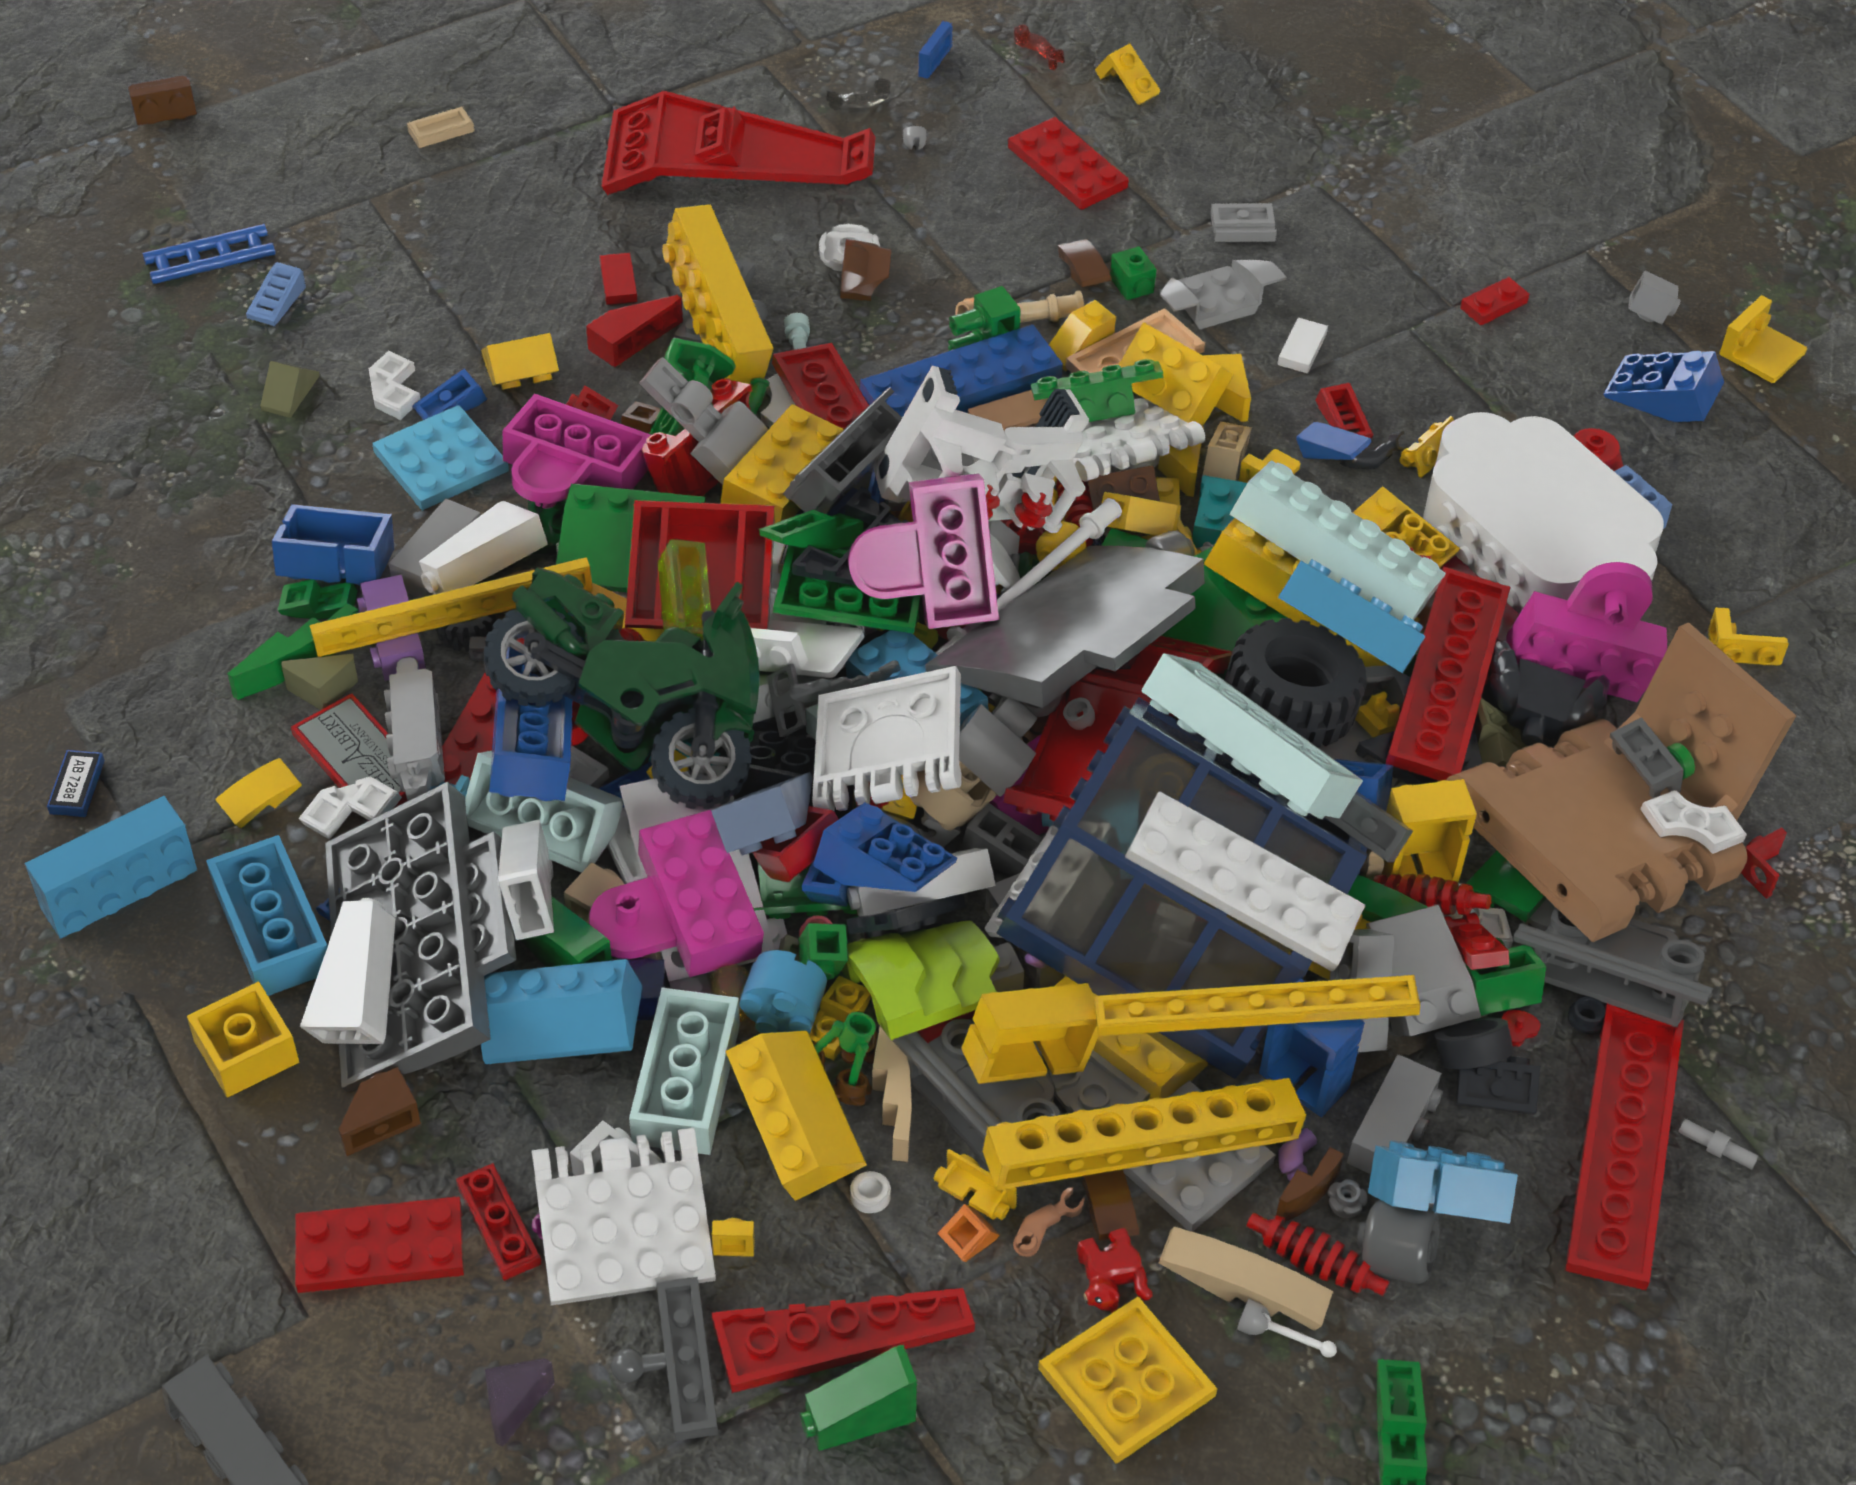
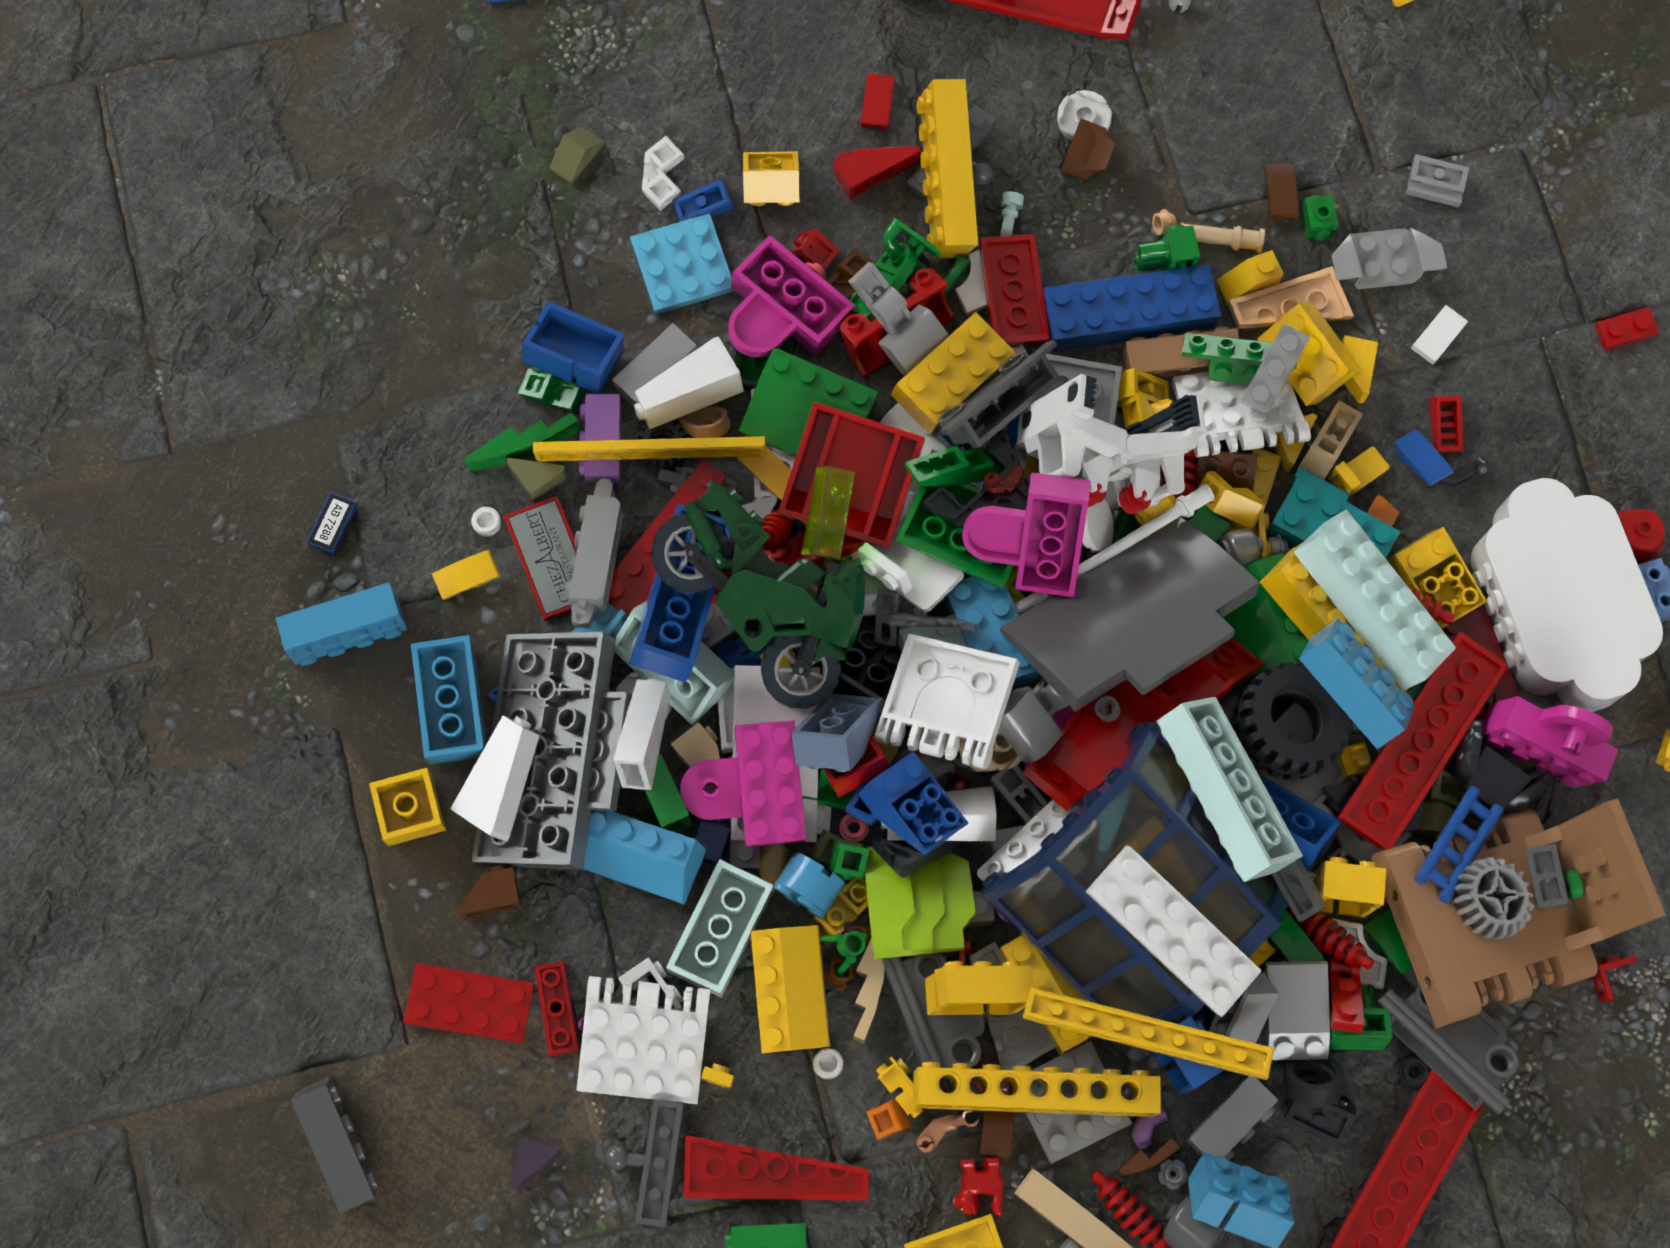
camera: 15 degrees right, 25 degrees up
(270, 740) = (486, 521): none -> white tile
(279, 277) = (587, 32): medium blue slope -> none
(334, 805) = (521, 602): white tile -> none
(890, 516) = (1006, 483): none -> clear red arm
(1068, 163) = (1306, 65): red plate -> none
(1141, 374) = (1275, 369): none -> light grey brick
(1425, 453) = (1515, 474): yellow hinge -> none
(1517, 756) = (1442, 847): none -> blue bar
(1521, 1026) = (1358, 1063): red piece -> none
(1597, 788) = (1489, 913): none -> light grey gear
(1675, 815) = (1572, 952): white tile -> none
(1718, 1144) = (1468, 1211): light grey bar -> none

